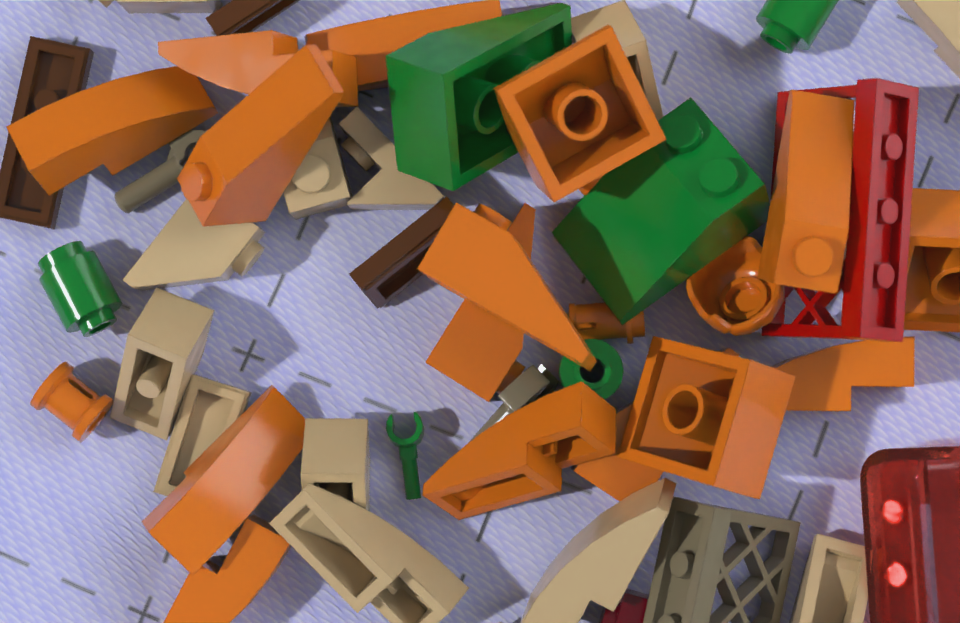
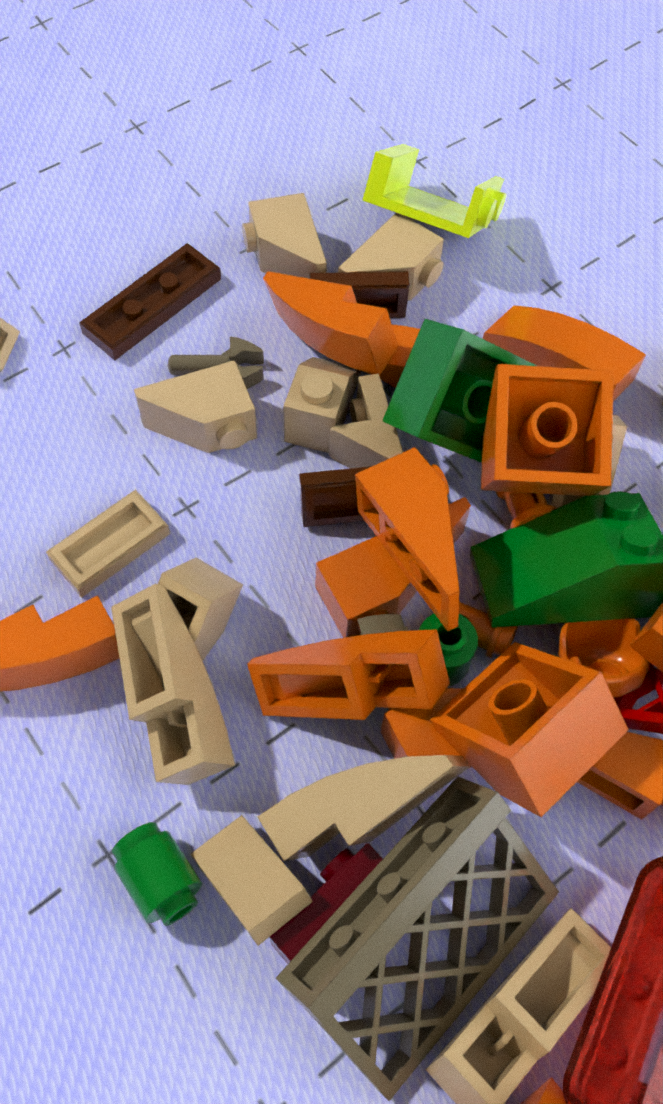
camera: 25 degrees right, 25 degrees down
(72, 401) = (37, 458): orange bush -> none
(79, 289) = (100, 392): green brick -> none
(109, 125) = (199, 304): orange slope -> none
(159, 361) = (121, 456): tan slope -> none
(228, 481) = (97, 563): orange slope -> none
(260, 143) = (291, 338): orange slope -> none
(408, 455) = (261, 631): green hand -> none

